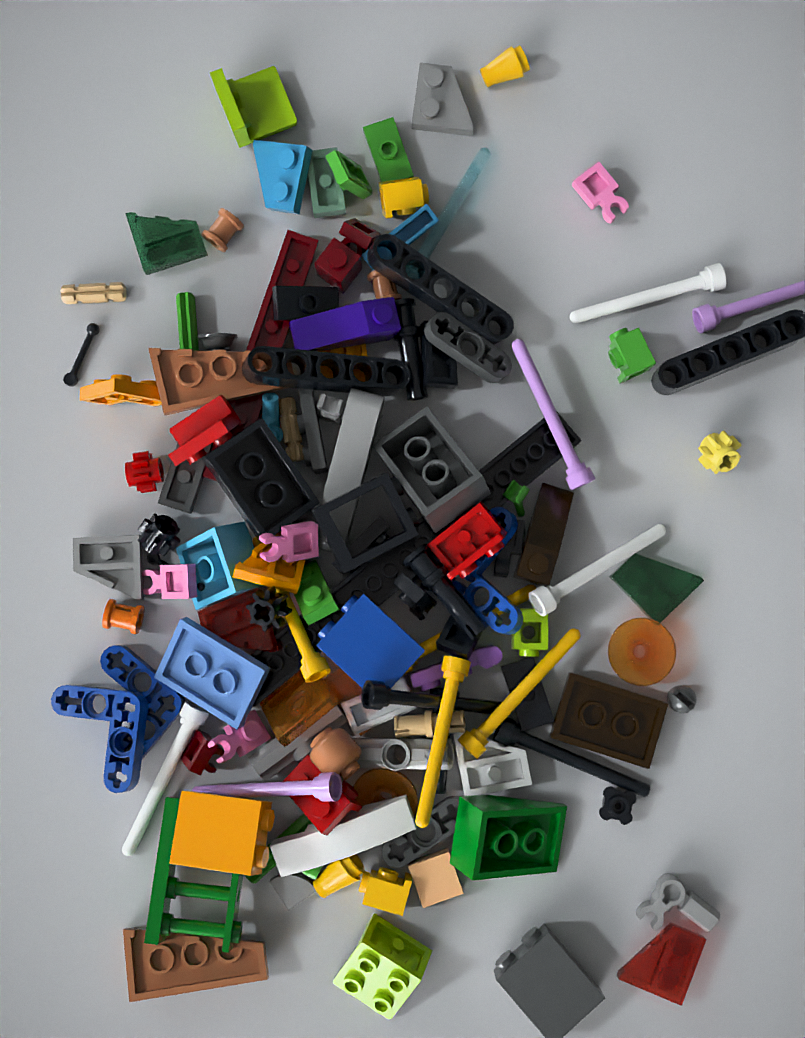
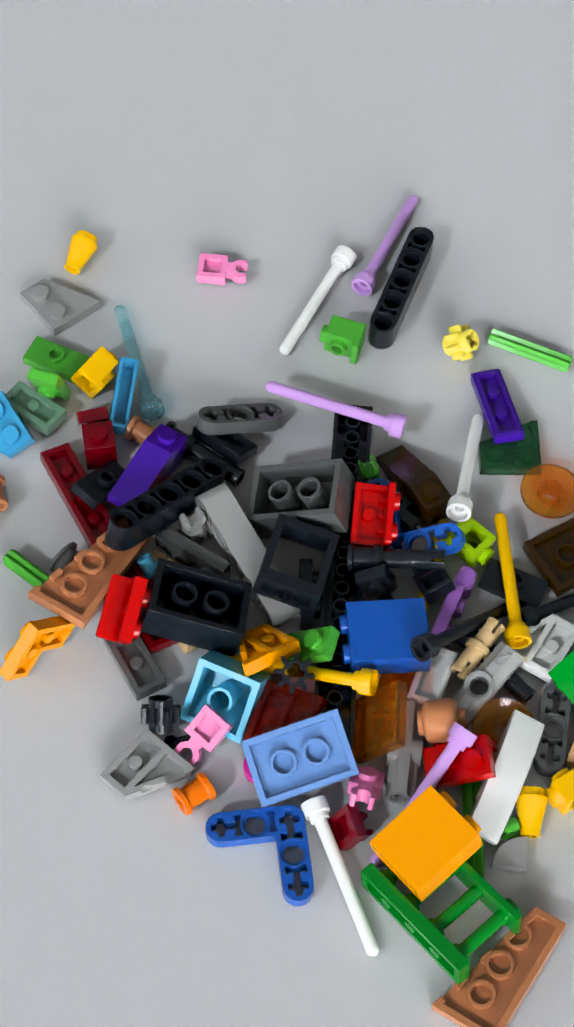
camera: 55 degrees left, 25 degrees down
(116, 714) = (260, 859): blue beam -> none
(144, 472) = (105, 685): red gear -> none
(296, 543) = (263, 621): bright pink plate -> none
(424, 288) = (181, 396): black beam -> none
(454, 672) = (455, 597): yellow piece -> none
(685, 536) = (497, 406): none -> dark purple tile
(773, 512) = (529, 350): none -> axle

